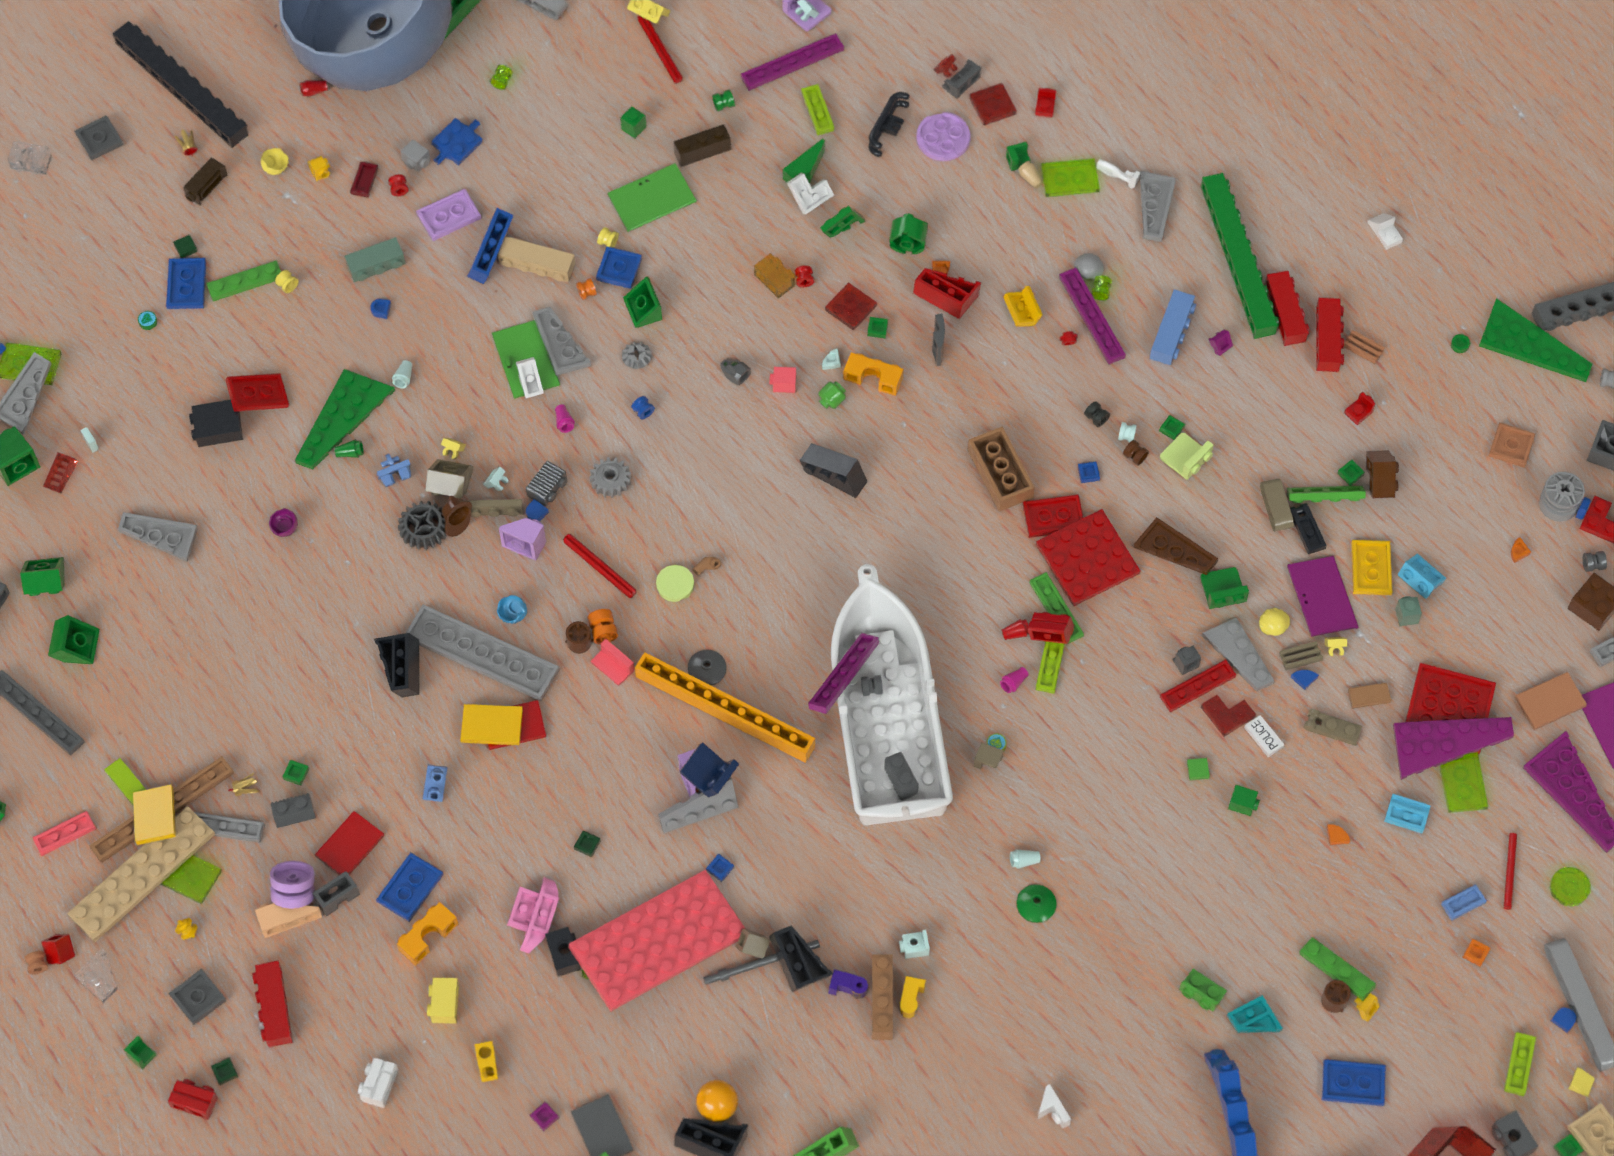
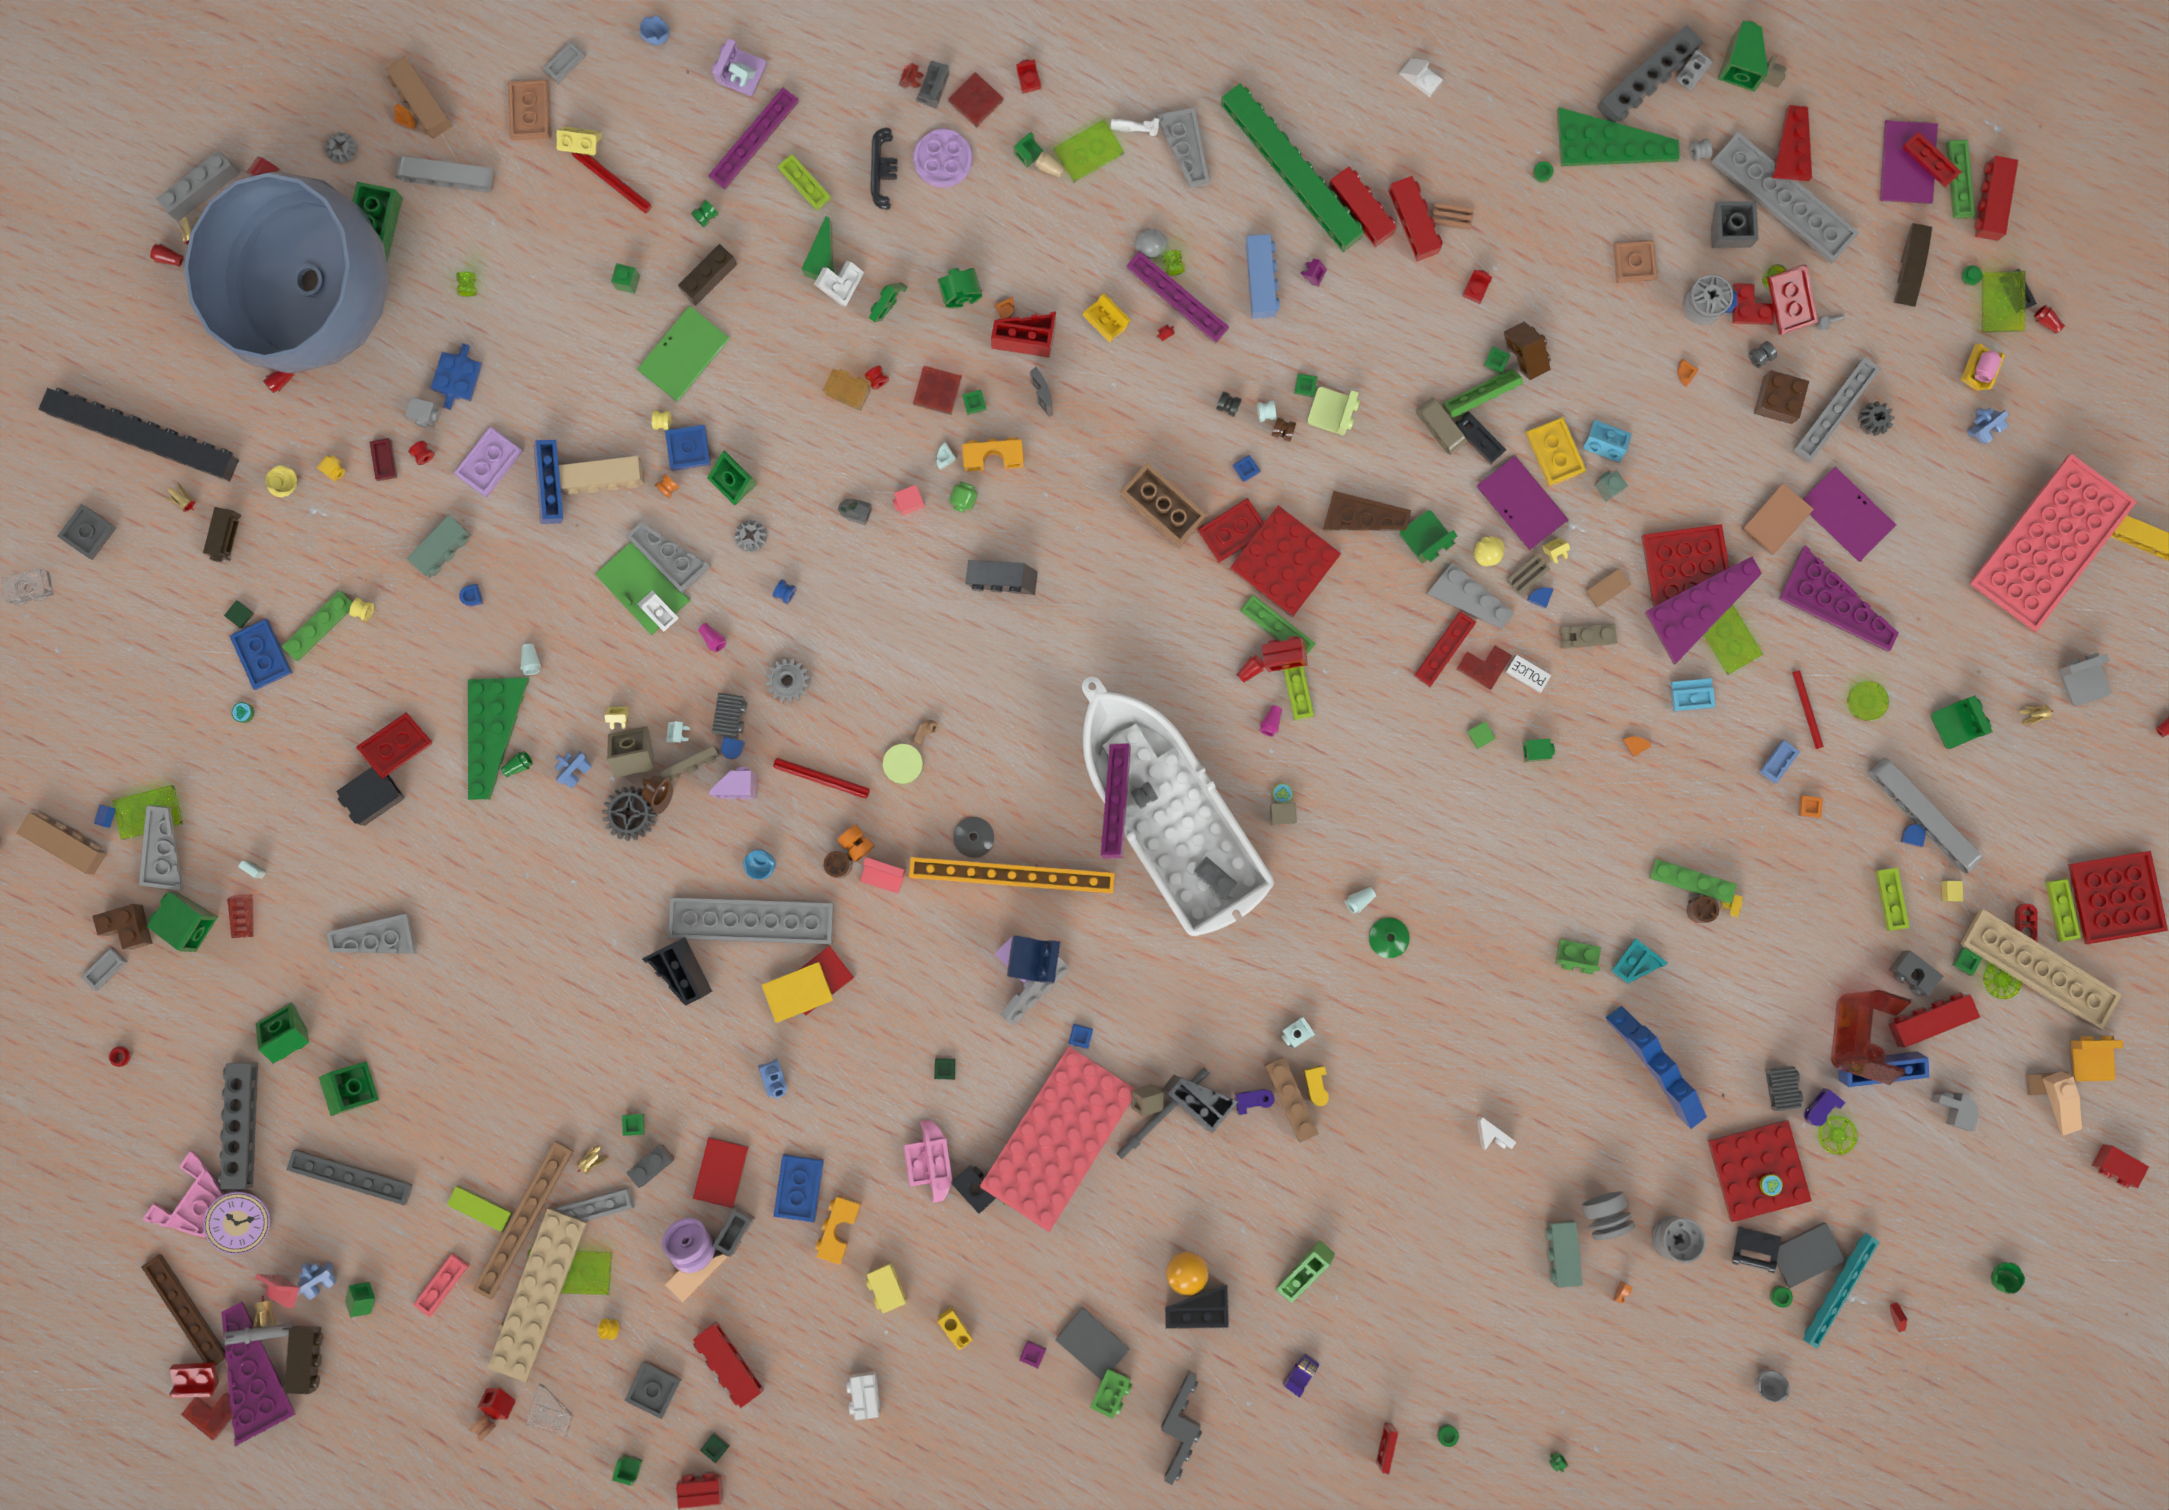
camera: 25 degrees left, 20 degrees up
(154, 814) = (519, 1234): yellow tile -> none
(283, 522) = (490, 872): magenta hair -> none
(1185, 657) = (1424, 628): dark grey brick -> none
(1353, 1082) = (1750, 984): blue tile -> none

